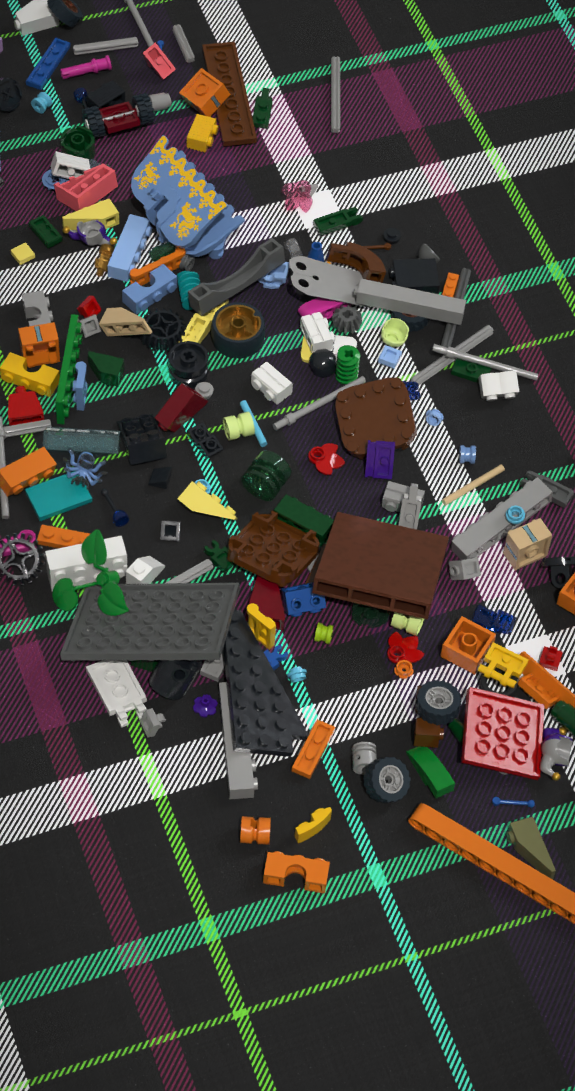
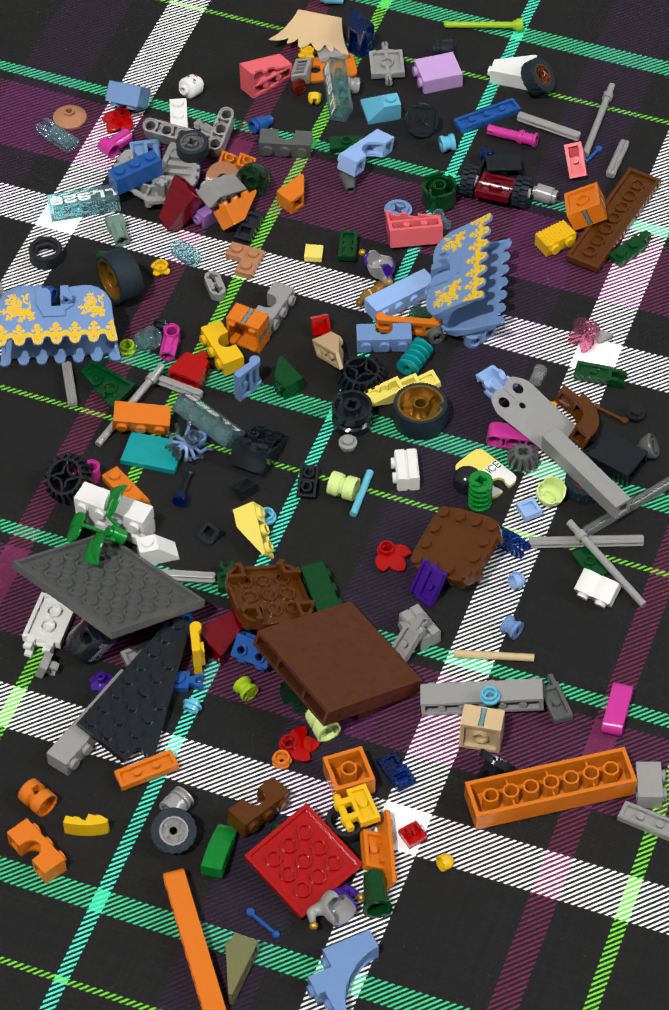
camera: 45 degrees right, 5 degrees down
(68, 165) = (413, 202): white brick -> none
(71, 353) = (266, 346): green plate -> none
(90, 326) = (305, 338): light grey slope -> none
(102, 211) = (405, 256): light yellow slope -> none
(180, 408) = (310, 442): dark red slope -> none
(264, 260) = (416, 367): dark grey arch -> none
(266, 475) = (317, 538): clear green wheel -> none
(292, 417) = (394, 507): light grey bar -> none
(316, 252) = (550, 388): blue cone -> none
(316, 332) = (484, 451): white brick -> none
(438, 702) = (269, 787): black wheel -> none
(450, 285) = (640, 484): orange piece -> none
(464, 568) = (412, 715): light grey bracket -> none

